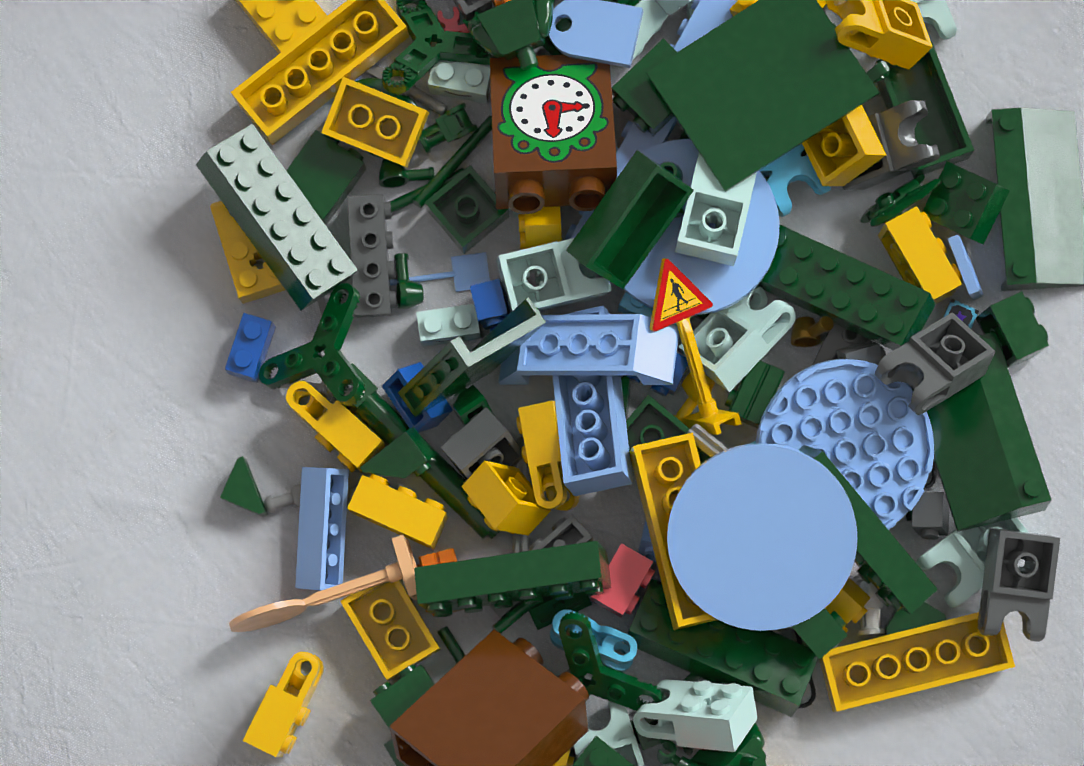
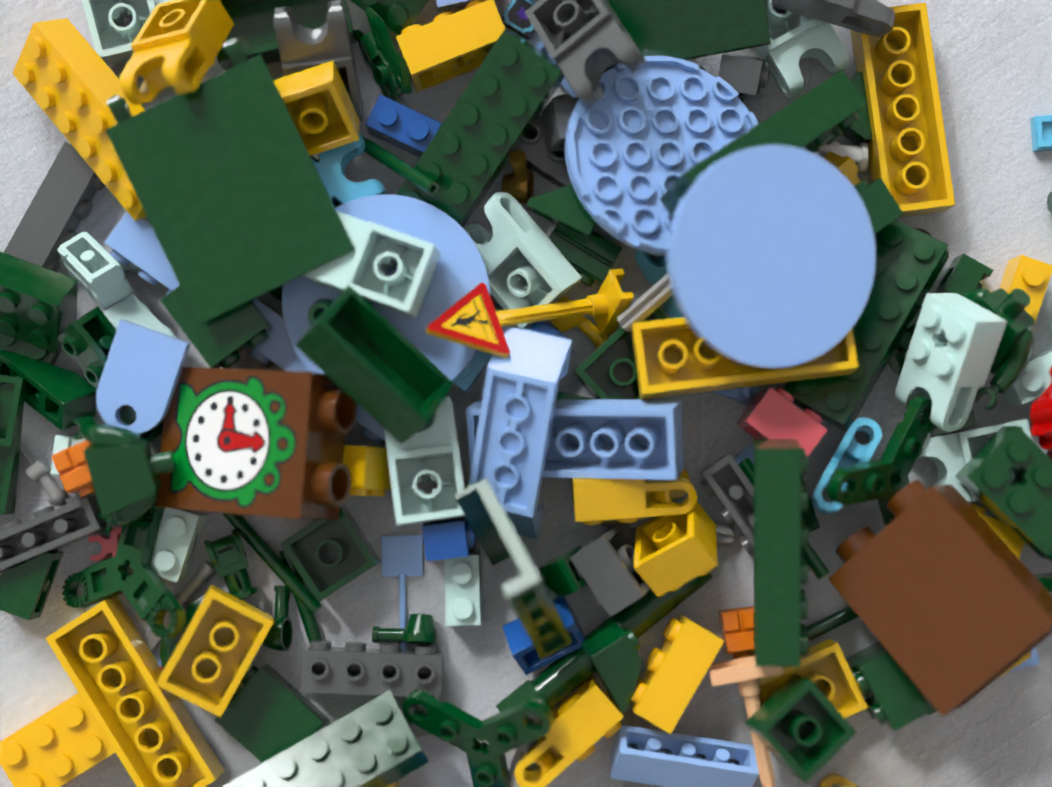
camera: 85 degrees left, 5 degrees up
(365, 616) = (801, 727): none -> dark green brick
(775, 733) = (963, 275): none -> dark green brick
(787, 365) = (563, 209): none -> dark green slope
(806, 222) = (400, 167): none -> dark green piece
(844, 222) = (401, 126): none -> blue brick

